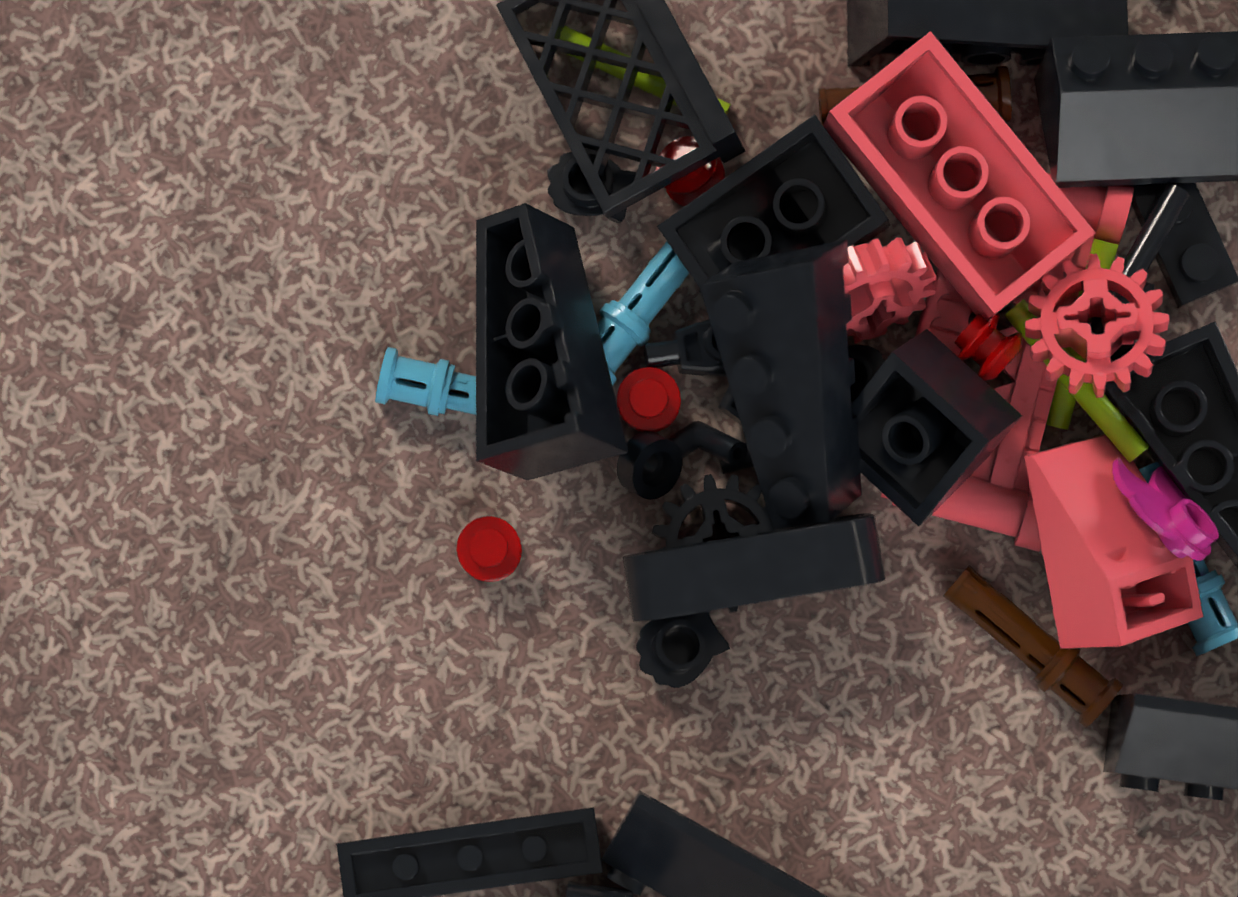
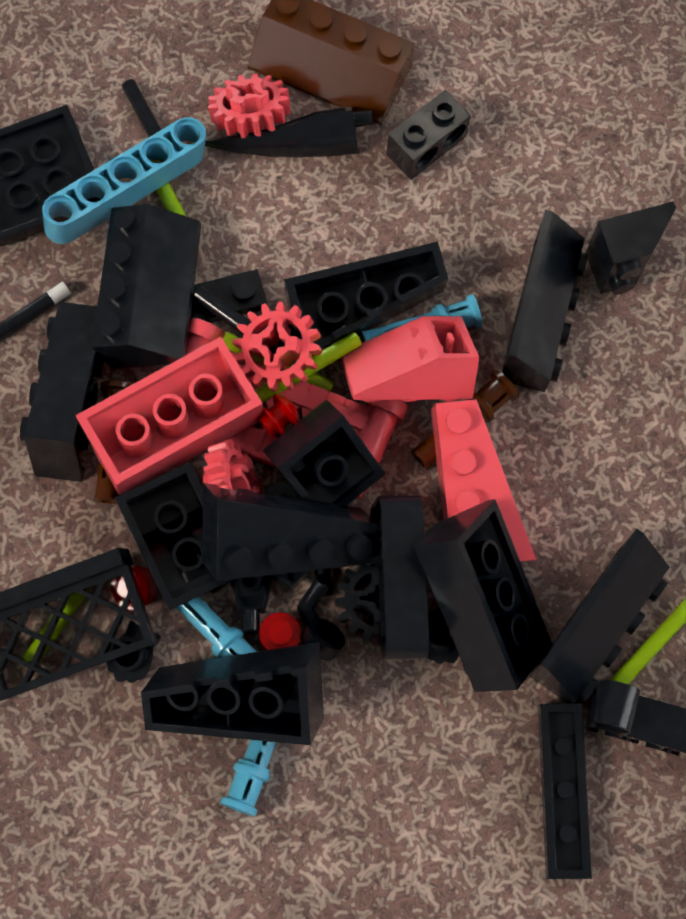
camera: 85 degrees left, 10 degrees down
(489, 549) = (363, 751): red wheel -> none
(739, 700) = (484, 597): none -> black slope
(892, 674) = (471, 469): none -> coral wedge
(1165, 509) = (403, 318): dark pink plate -> none

